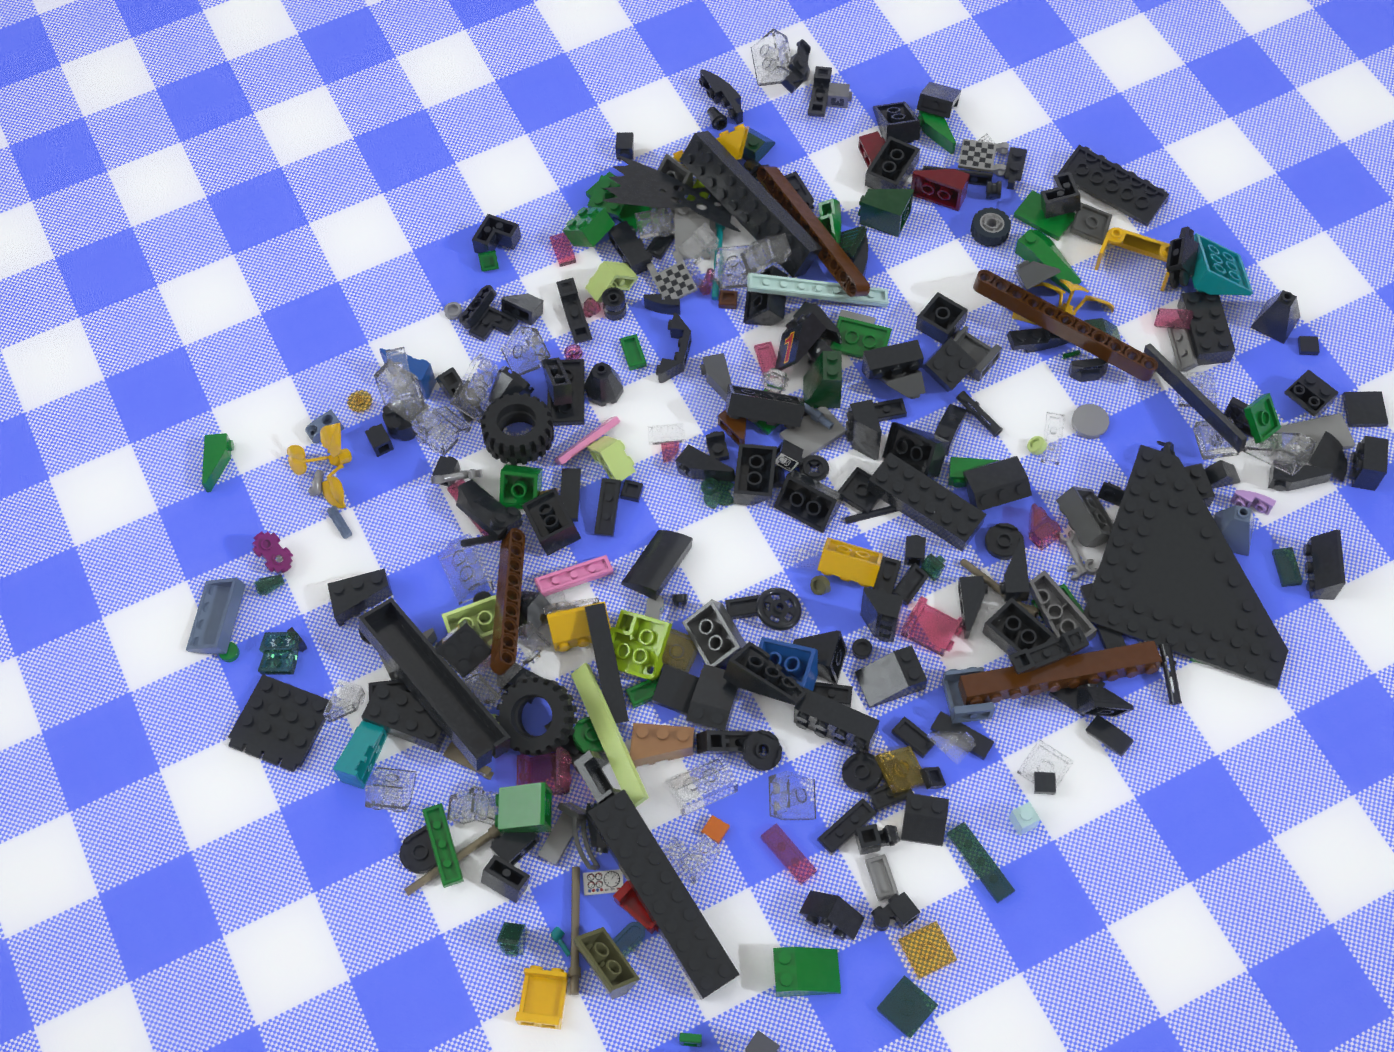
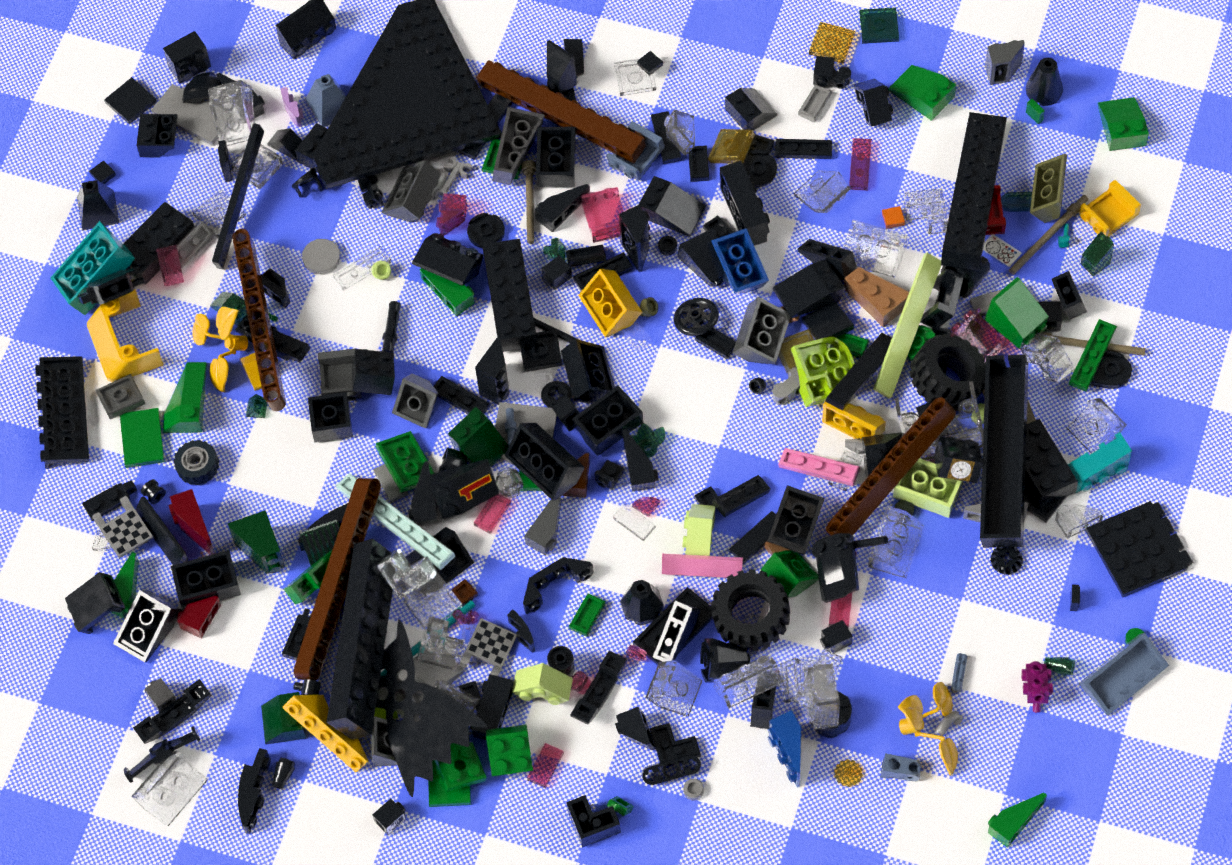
camera: 135 degrees left, 0 degrees up
(279, 653) = (1098, 593): slope -> none
(358, 593) = (996, 591): black wedge -> none
(379, 440) = (865, 714): black brick -> none
(464, 474) = (823, 615): light grey bar -> none
(561, 606) = (847, 430): clear tile -> none
(579, 815) = (982, 293): dark grey piece -> none
(658, 563) = (748, 418): black slope -> none
(750, 750) = (820, 235): black tile -> none
(755, 672) = (766, 267): black wedge -> none
(871, 839) = (799, 122): black brick -> none
(892, 359) = (410, 411): black slope -> none
(917, 448) = (472, 329): black slope -> none
(932, 777) = (716, 127): black tile -> none
(950, 424) = (426, 336): black slope -> none
(980, 862) = (742, 59): tile -> none
(1016, 579) = (513, 190): black slope -> none
(1024, 818) = (687, 55): light aqua brick -> none
(1033, 273) = (230, 366): dark grey slope -> none
(1049, 652) = (557, 119): black slope -> none
(1063, 197) = (118, 421): black brick -> none
(1166, 650) = (490, 54): black pin -> none
(1262, 418) = (219, 135): green plate -> none
(1287, 567) = (324, 55): tile -> none

